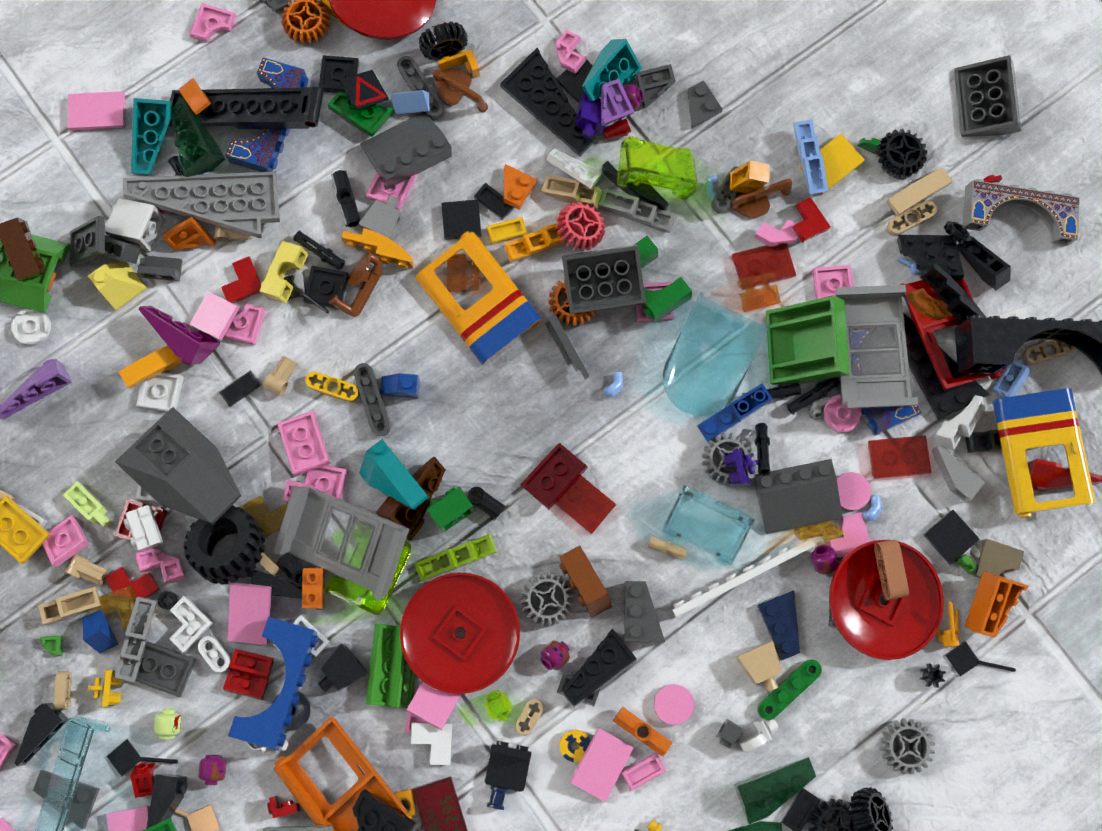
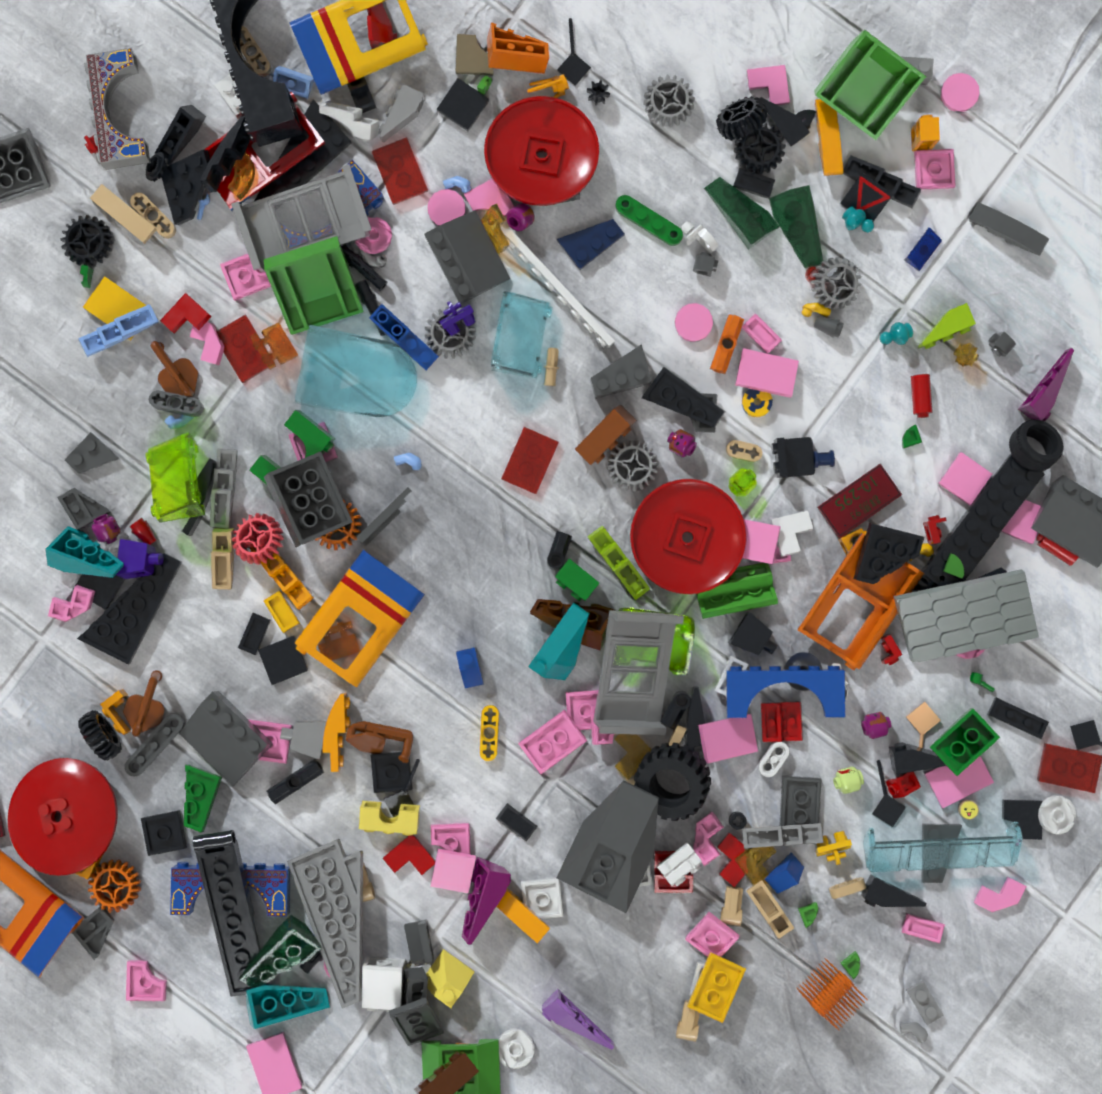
camera: 105 degrees left, 10 degrees up
(87, 504) = (671, 928): yellowish green hinge -> none
(188, 235) = (379, 925): orange wing -> none
(194, 96) = (233, 968): orange slope -> none
(194, 624) = (751, 787): white plate -> none
(278, 380) = (498, 787): tan piece -> none
(313, 588) = (688, 686): orange bracket -> none
(336, 262) = (349, 812): black pin -> none
(364, 90) = (175, 800): black piece -> none
(372, 399) = (491, 689): dark grey plate -> none
(410, 102) = (175, 748): light blue slope -> none
(517, 186) = (233, 614): orange wing -> none
(554, 476) = (514, 493): dark red tile -> none
(580, 171) = (197, 561): white wing -> none
(614, 102) = (119, 541): medium lavender wing -> none
(749, 177) = (160, 384): light orange brick -> none
(761, 665) = (634, 251): tan torso -> none
(762, 442) = (425, 303): black pin -> none
(891, 569) = (514, 152): nougat beam -> none

